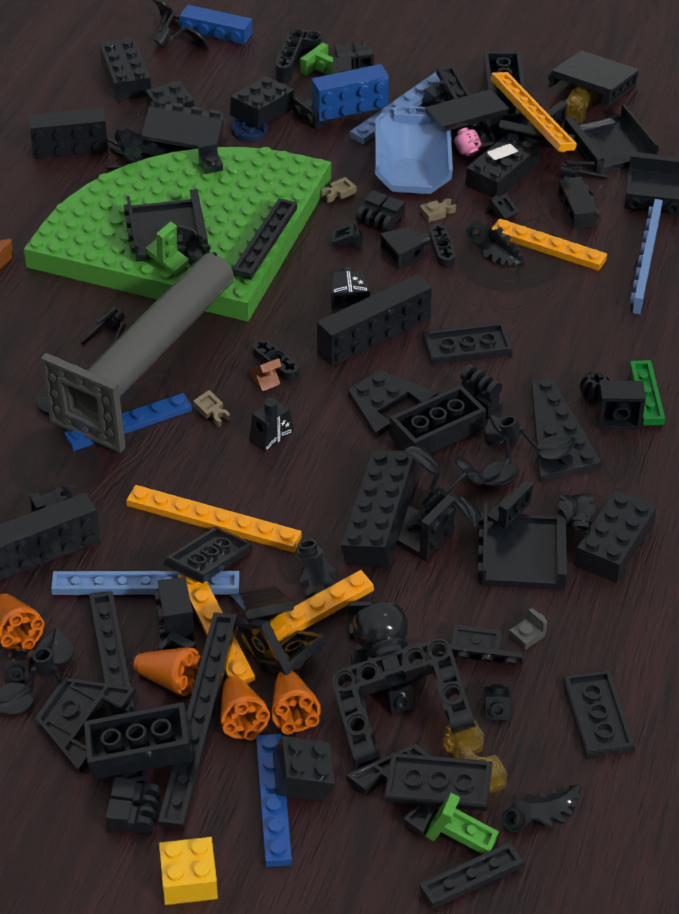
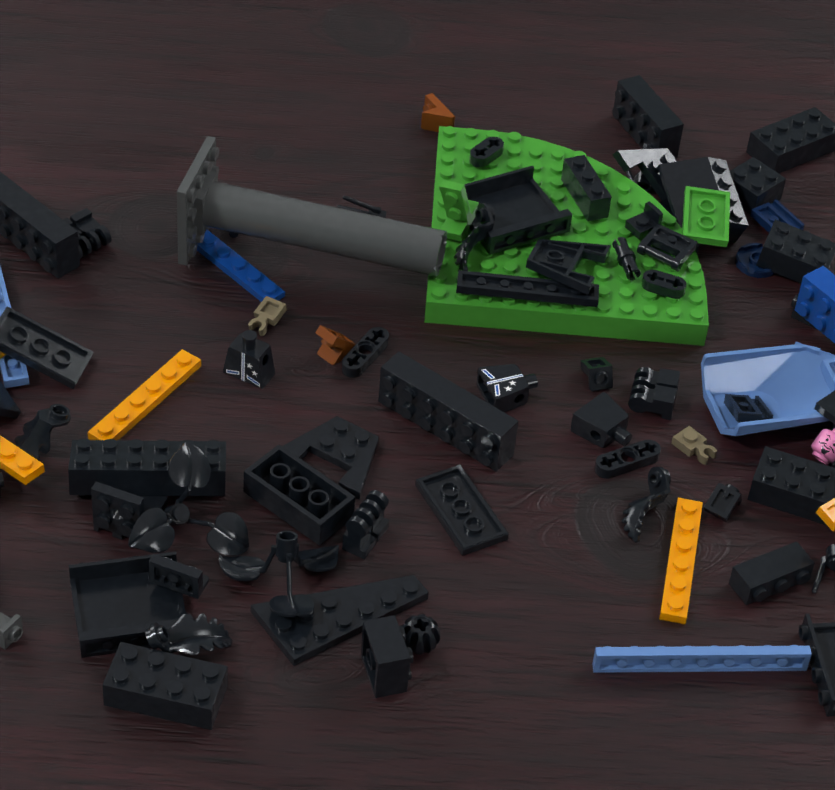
camera: 70 degrees right, 0 degrees up
(81, 224) = (486, 151): none -> black beam
(159, 177) = (586, 188): none -> black brick
(210, 517) = (107, 352): light orange plate -> none
(213, 101) = (767, 213): none -> dark blue plate
(219, 125) = (706, 216): none -> bright green plate
(242, 150) = (670, 242): none -> black plate
(243, 214) = (560, 259): none -> black wing
(250, 178) = (626, 258): none -> black pin
(284, 168) = (664, 284): none -> black beam
(284, 503) = (146, 397): none -> light orange plate
(340, 188) = (680, 352): dark tan plate -> none
(423, 167) = (747, 409): none -> black plate
(502, 151) = (809, 472): white sticker -> none
(653, 407) = (435, 690): green plate -> none

